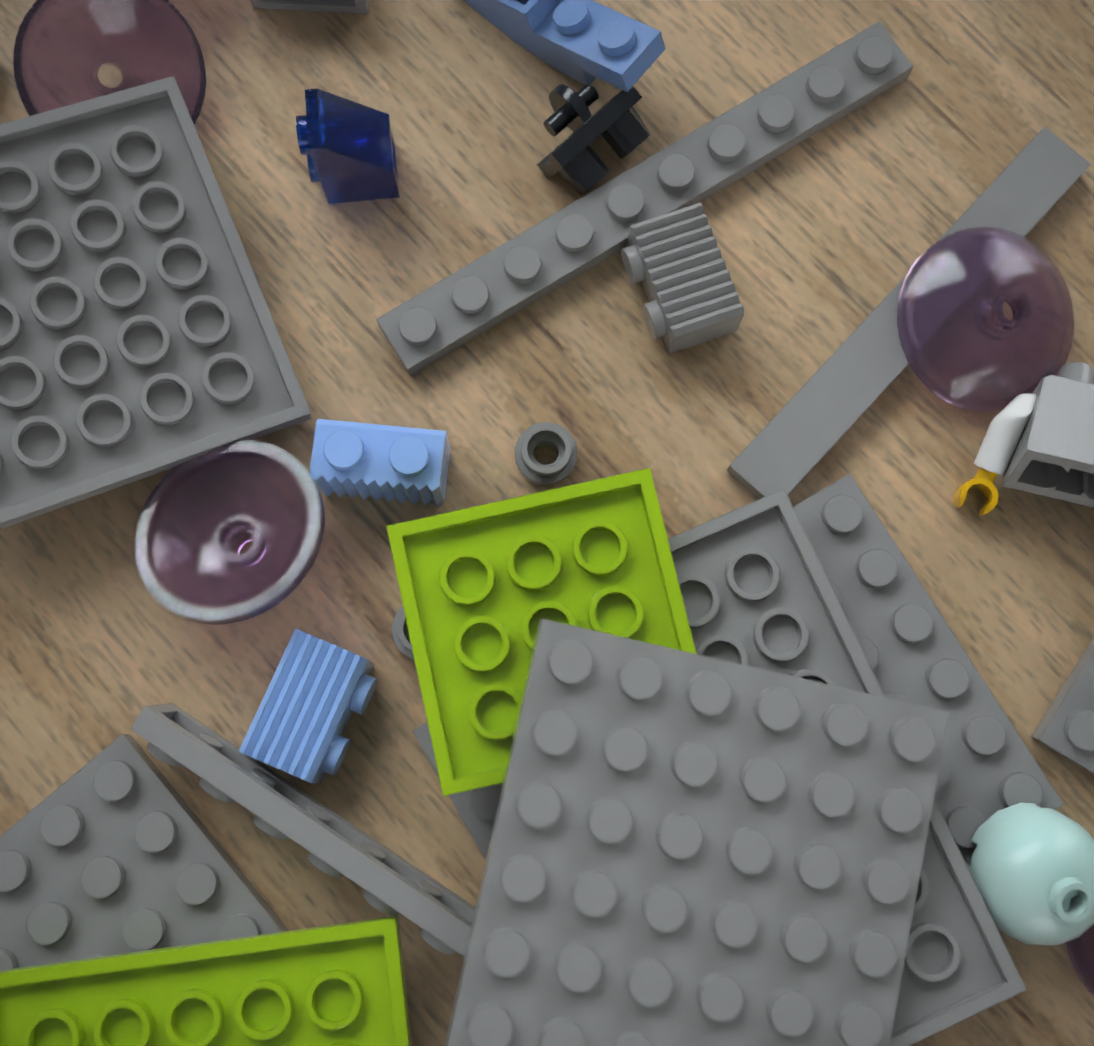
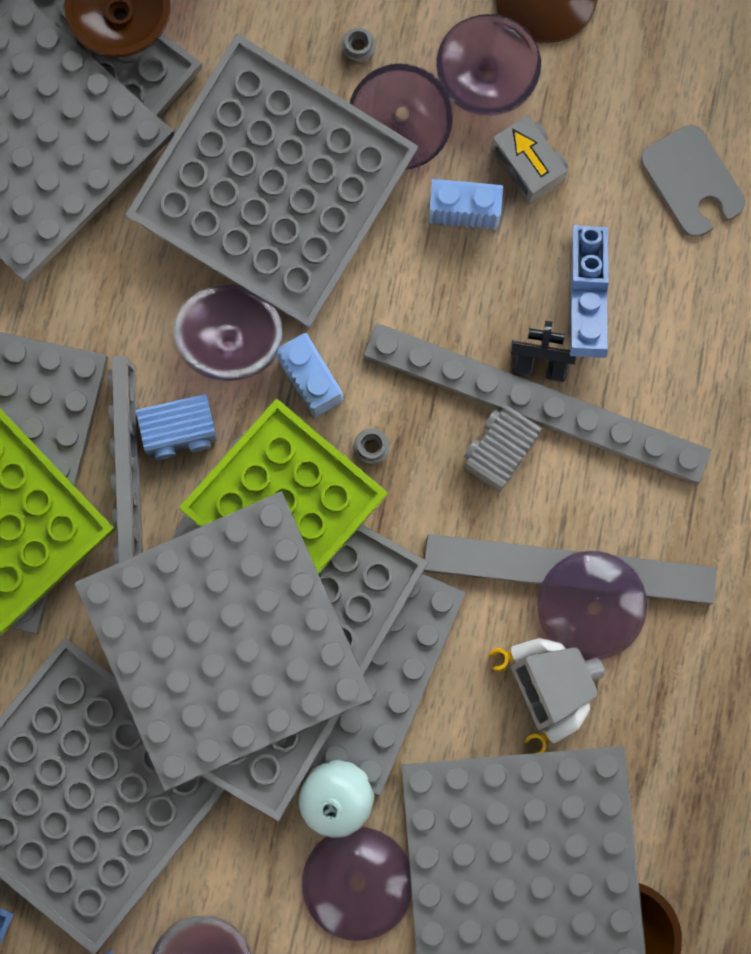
camera: 55 degrees right, 0 degrees up
(315, 56) = (465, 204): none -> light blue brick
(348, 148) = (445, 250): clear blue slope -> none

